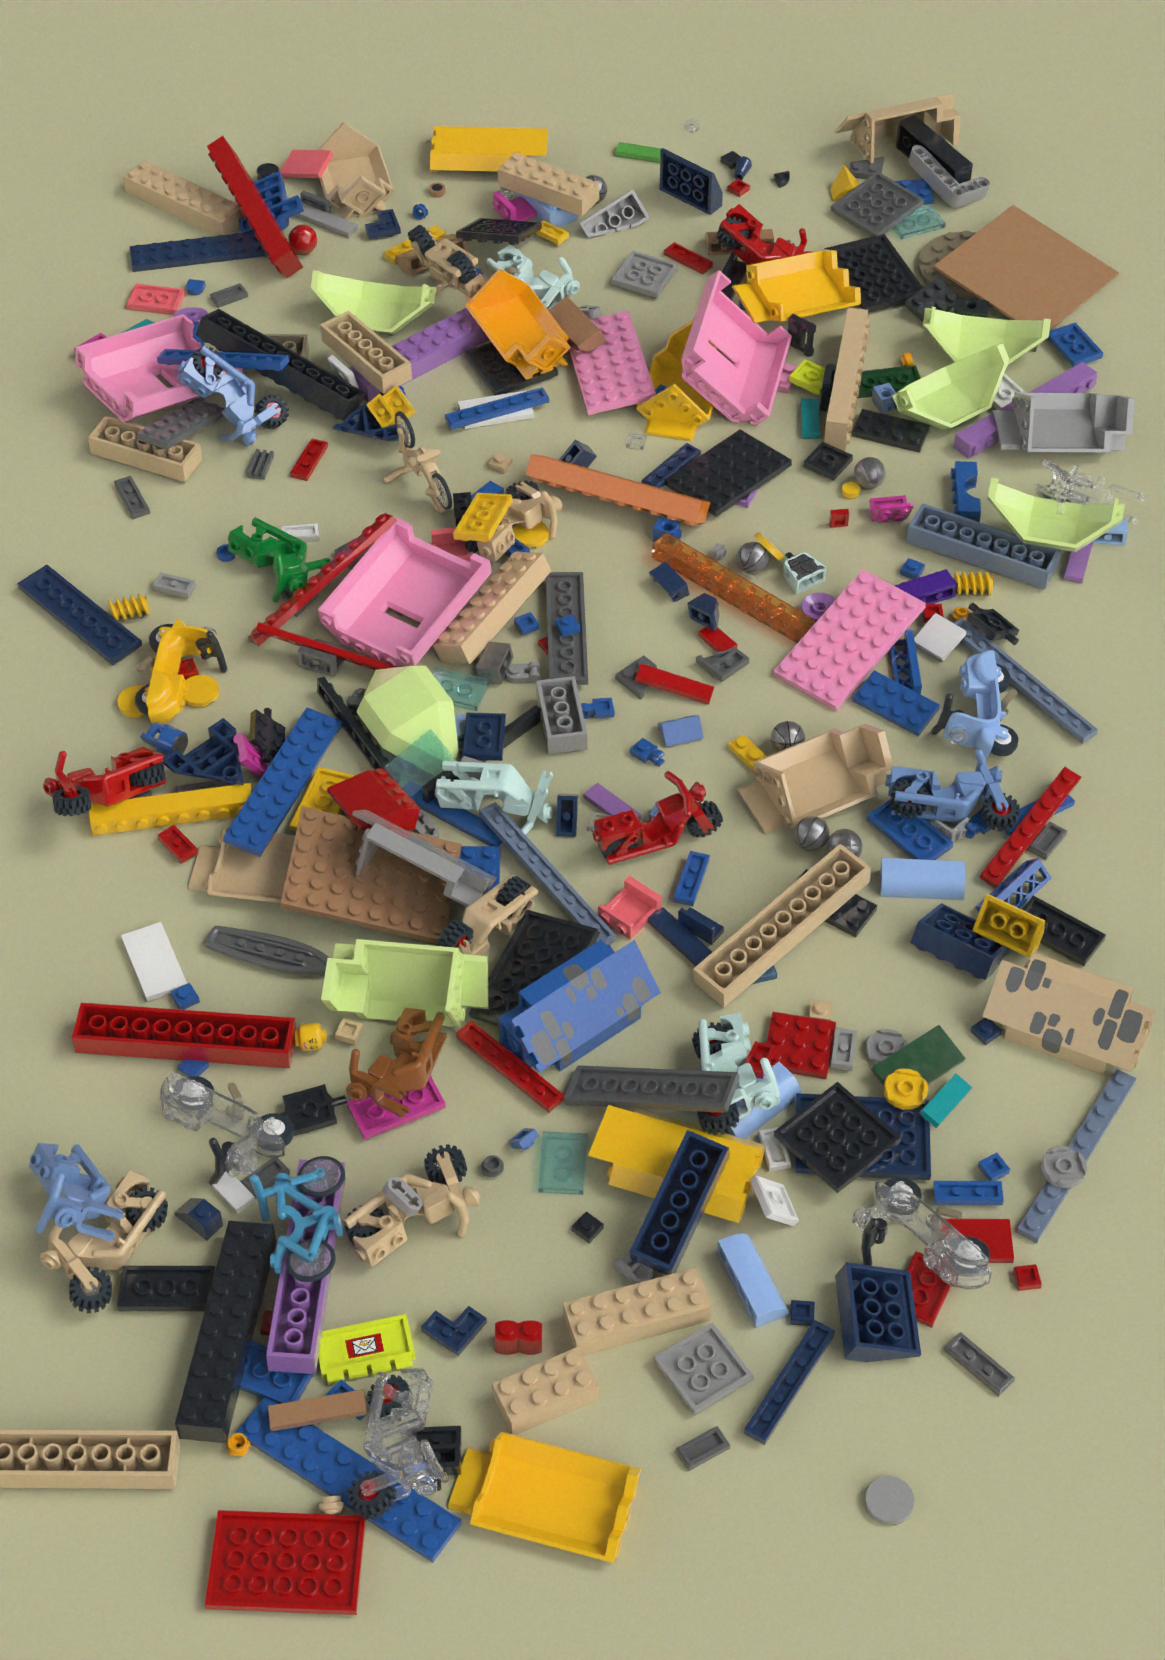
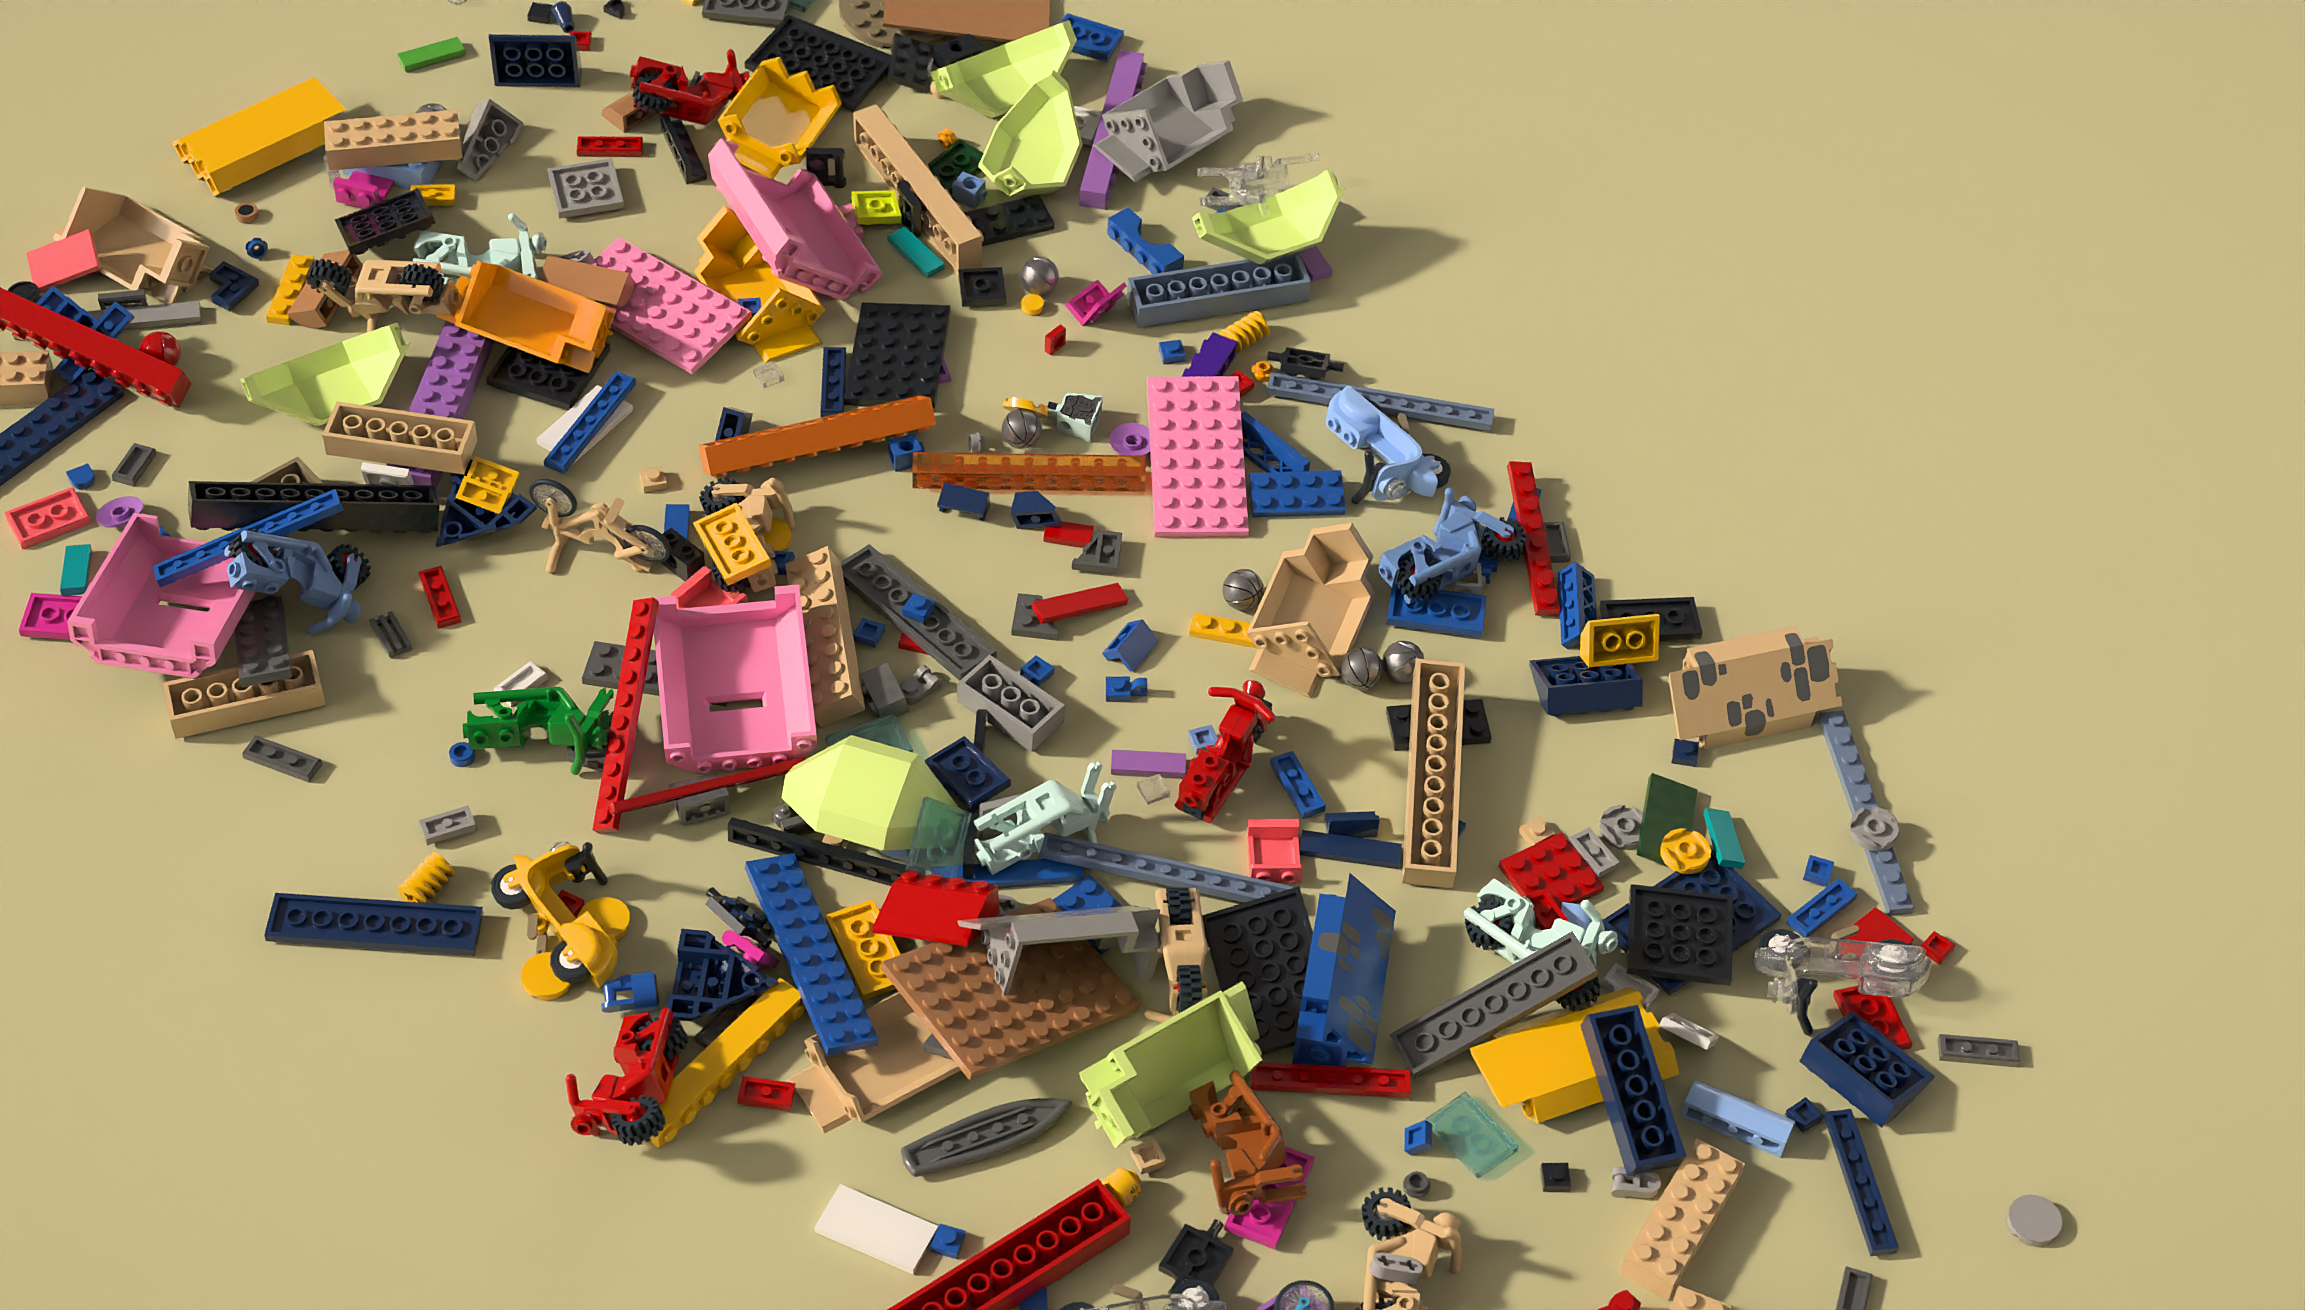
camera: 45 degrees left, 0 degrees up
(567, 815) = (1124, 803): dark blue slope -> none
(703, 1368) = (1783, 1225): light grey plate -> none
(922, 878) = (1496, 646): light blue brick -> none
(939, 637) = (1271, 403): white tile -> none

